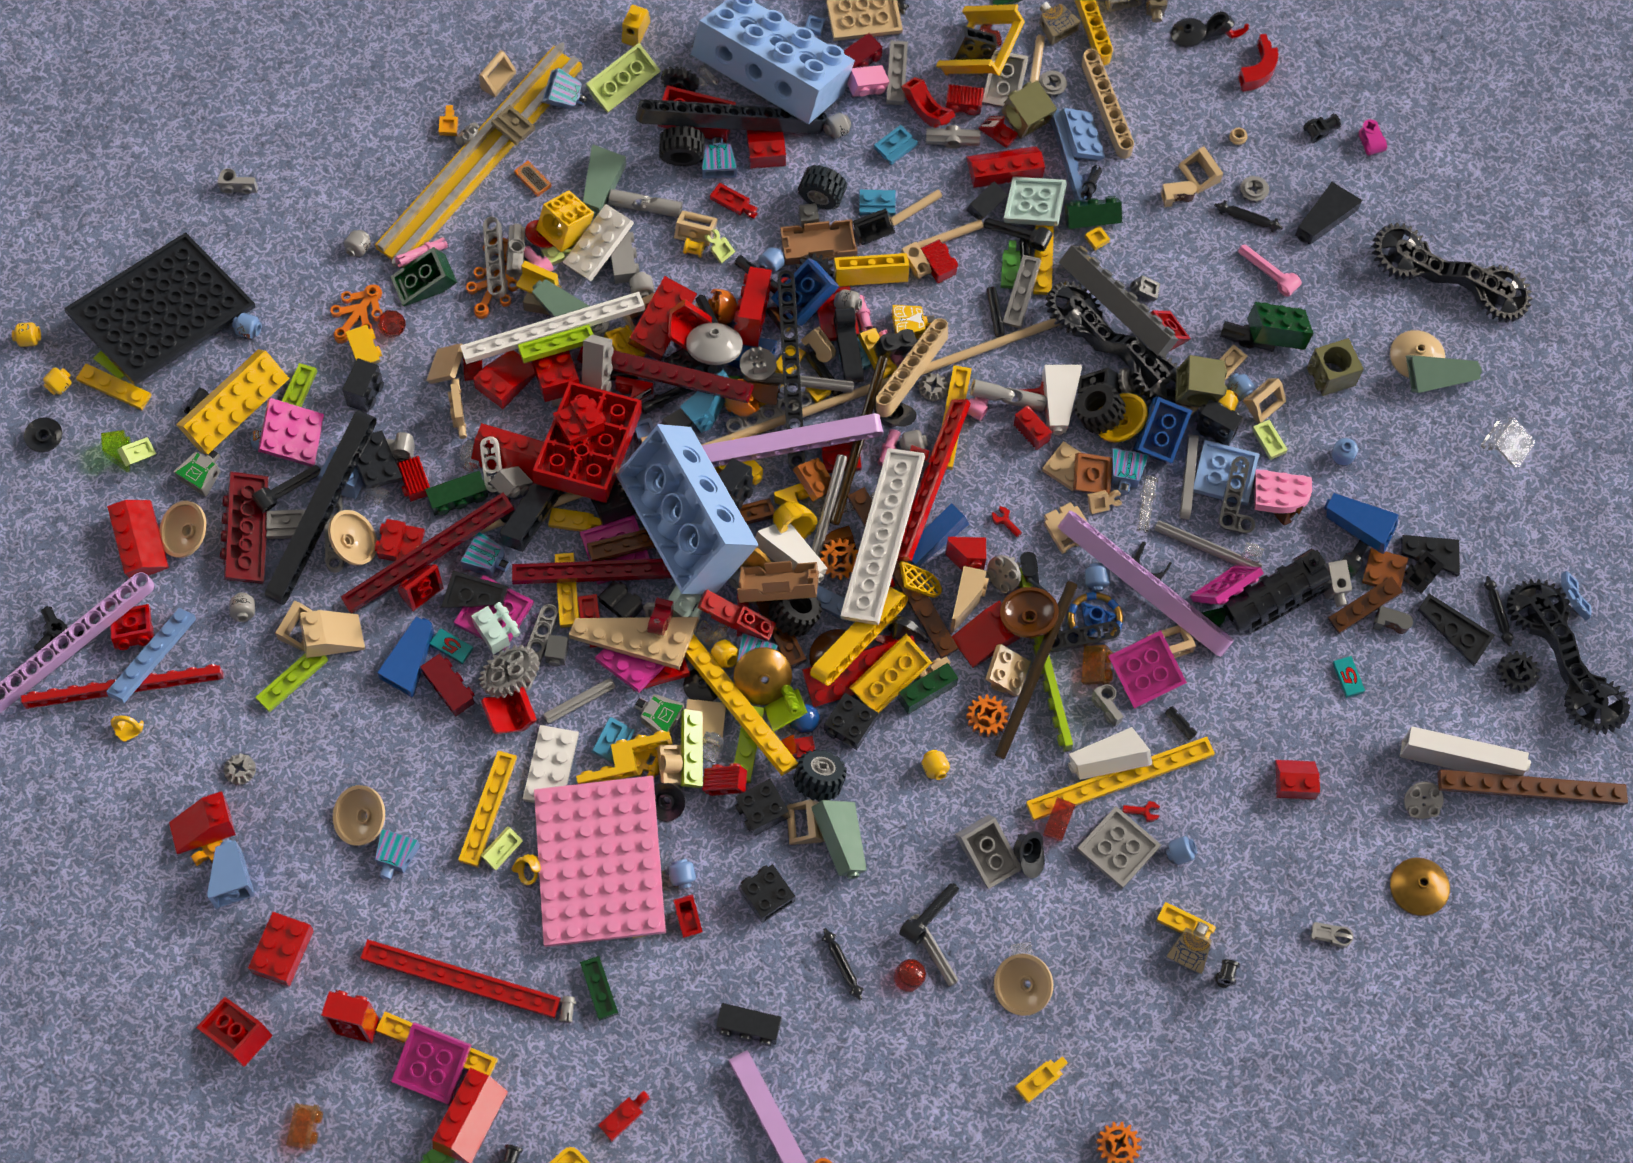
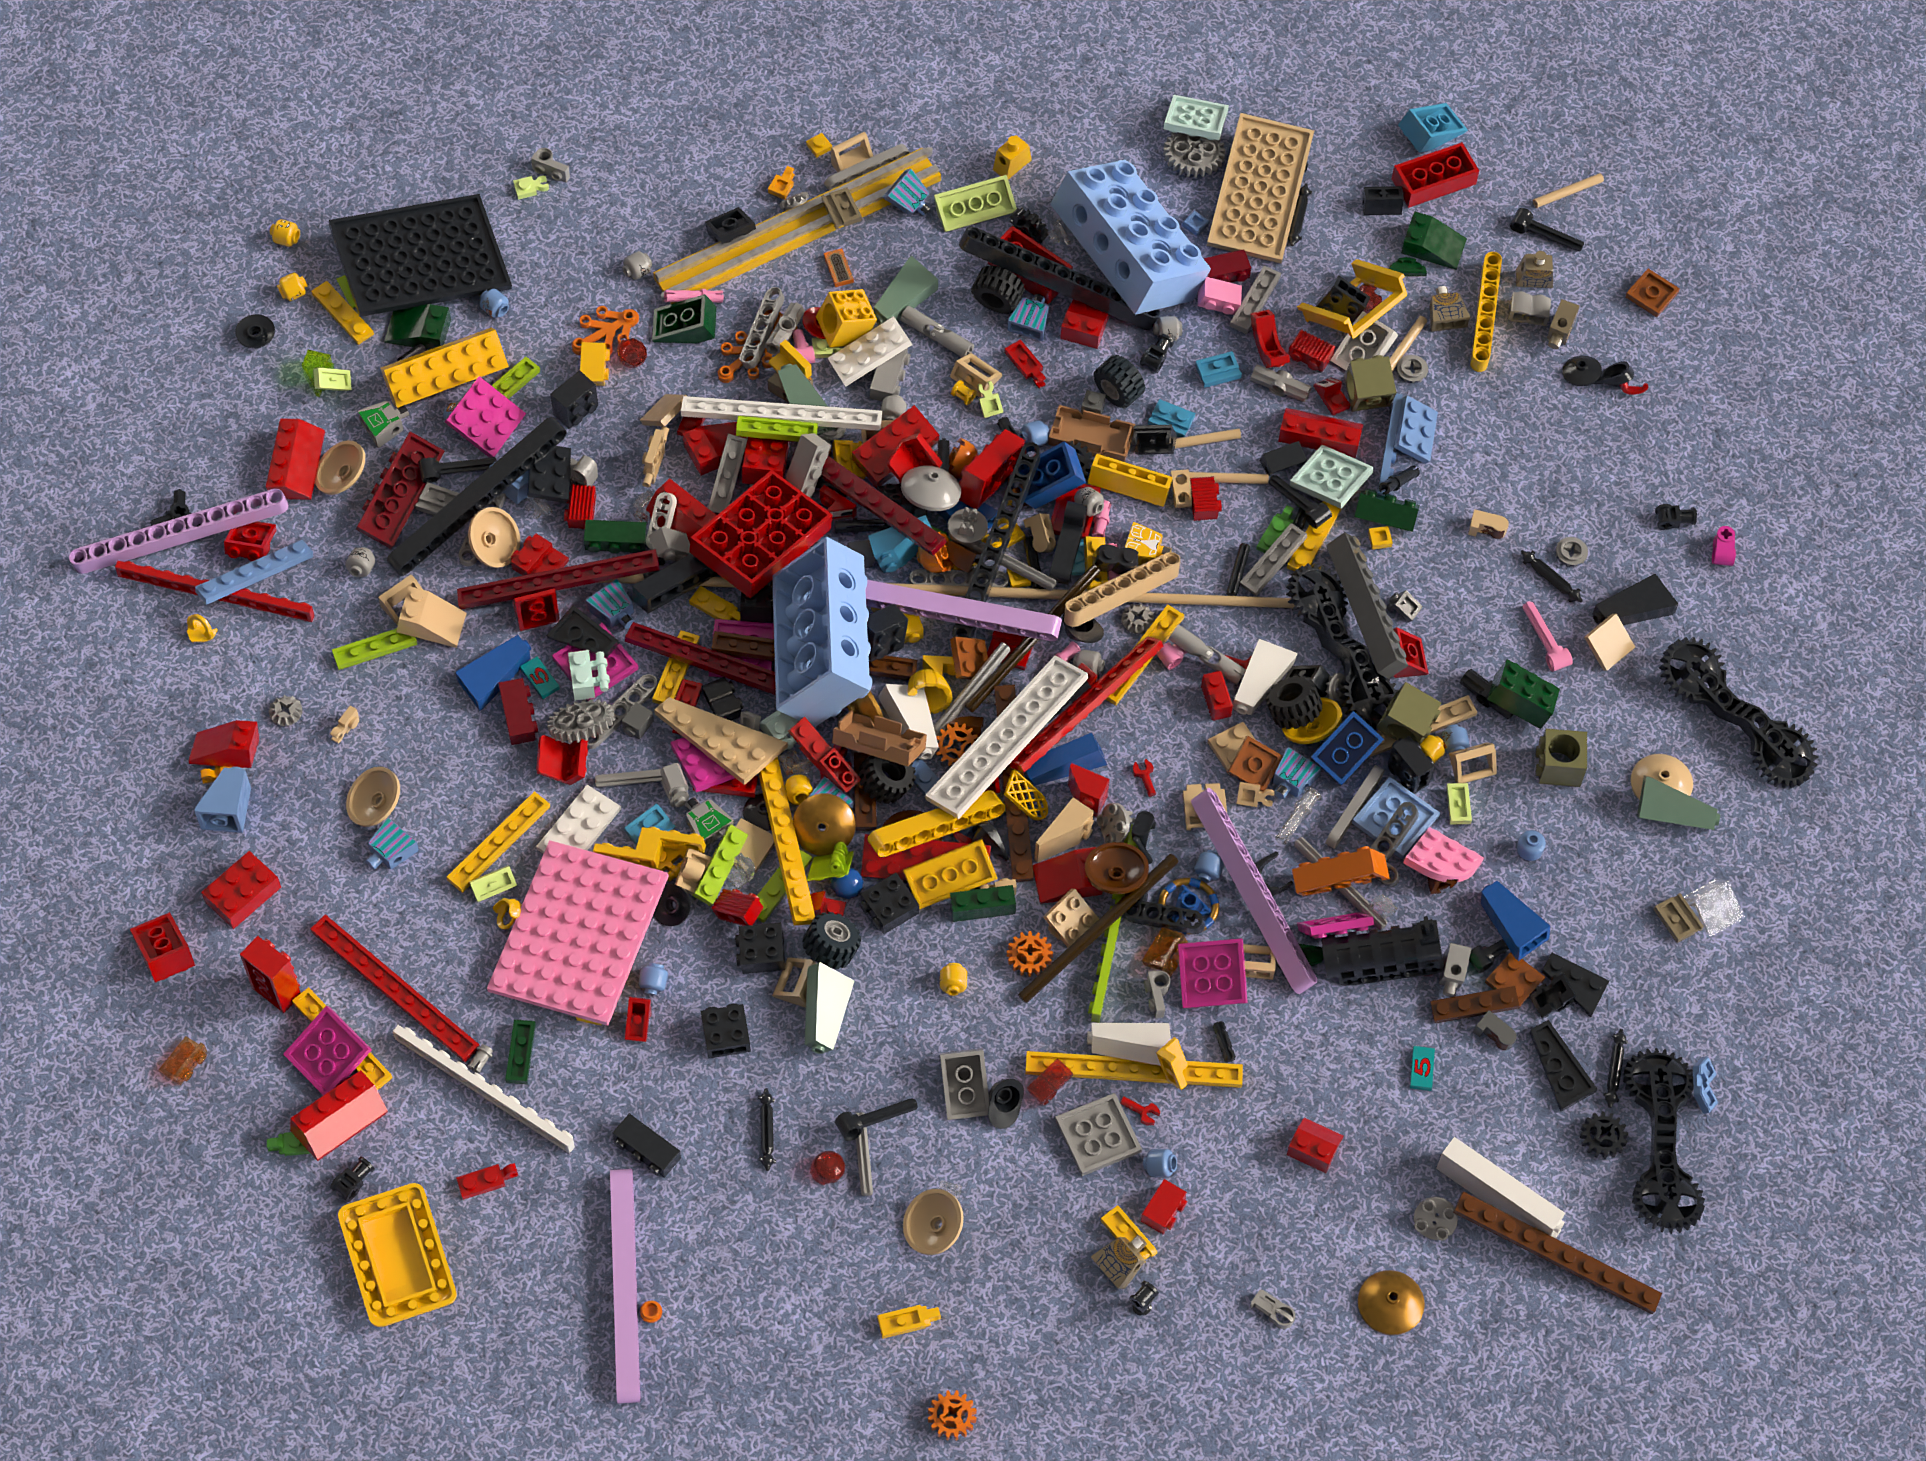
camera: 25 degrees right, 5 degrees down
(189, 372) = (419, 324): none -> dark green slope
(224, 210) = (528, 187): none -> yellowish green plate
(301, 756) = (348, 721): none -> tan plate
(423, 177) = (729, 225): none -> black plate
(463, 76) = (819, 145): none -> yellow plate
(514, 80) = (865, 166): none -> light grey beam
(529, 399) = (727, 473): none -> light grey plate
(575, 1033) = (490, 1092): none -> white plate
(580, 420) = (761, 508): red plate -> none
(618, 694) = (674, 785): none -> light grey brick
(660, 617) = (749, 727): dark red leg -> none
(838, 152) = (1156, 354): none -> black connector
(1109, 110) = (1455, 416): tan beam -> none
(1155, 762) = (1173, 1063): none -> yellow panel
(1203, 886) = (1164, 1206): none -> red brick
(1207, 539) = (1340, 871): none -> orange wedge
(1208, 165) = (1534, 509): tan tile -> none
(1238, 132) = (1584, 488): tan plate -> none
(1258, 75) = (1638, 439): red arch -> none
(1323, 253) = (1609, 642): none -> tile
(1486, 464) = (1678, 917): none -> dark tan plate

